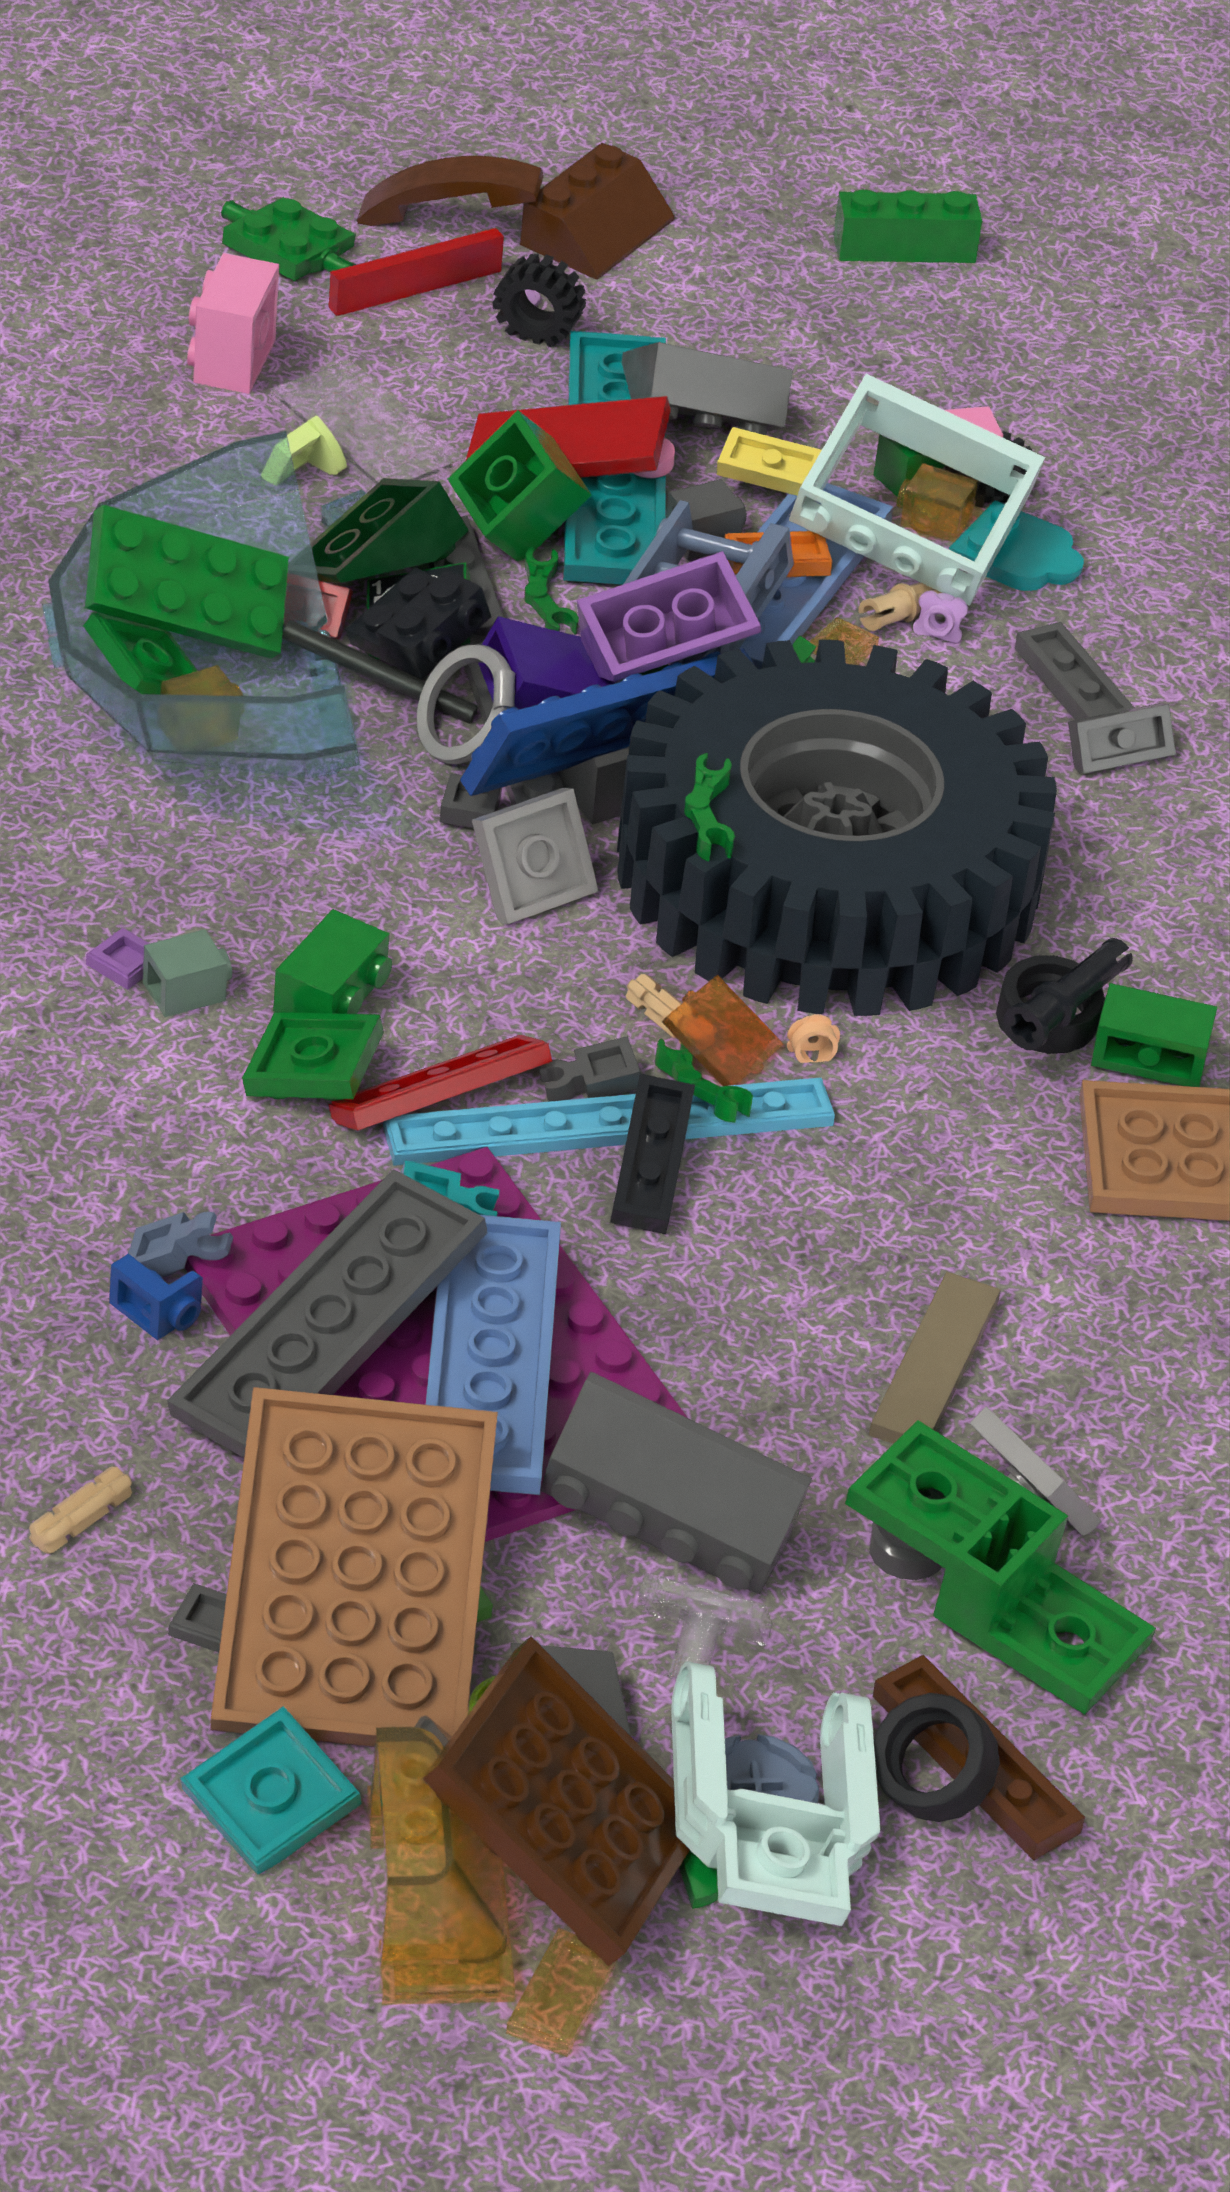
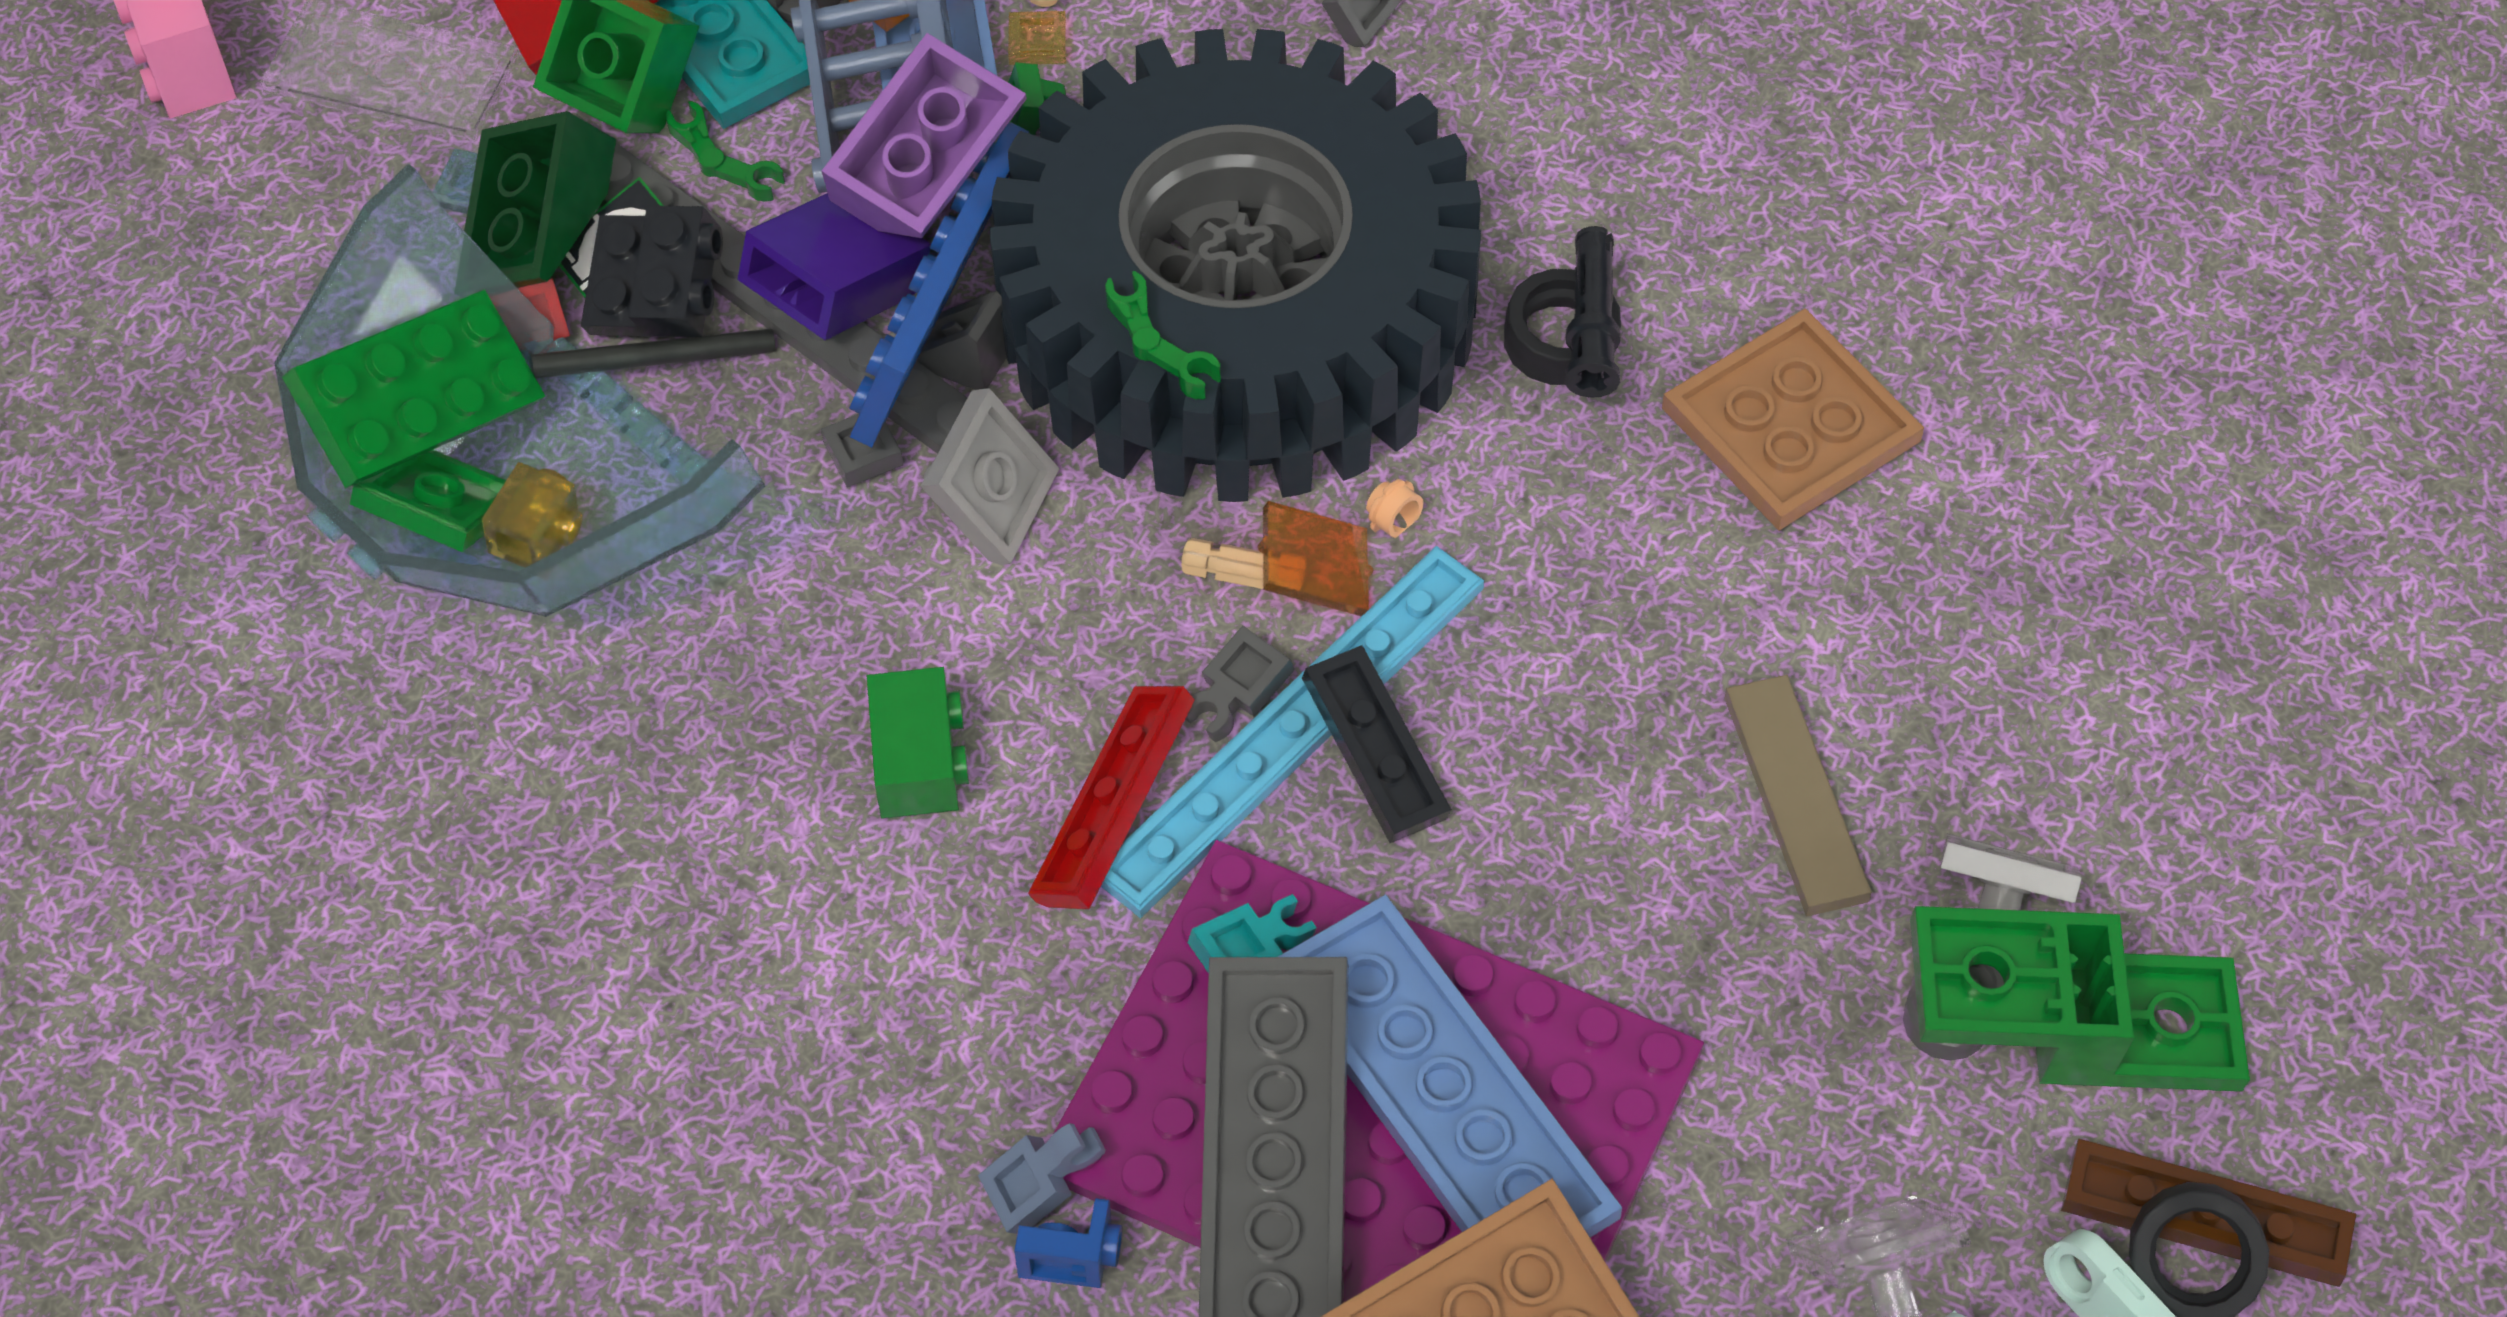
camera: 30 degrees left, 15 degrees up
(119, 958) = (689, 856): medium lavender tile -> none
(186, 972) = (771, 837): sand green brick -> none
(313, 1055) = (976, 852): green plate -> none
(317, 446) = (363, 124): yellowish green tile -> none
(503, 699) = (820, 316): light grey piece -> none
(675, 1484) = (1744, 1128): dark grey slope -> none
(726, 1099) = (1393, 635): green piece -> none
(1156, 1031) = (1685, 303): green brick -> none

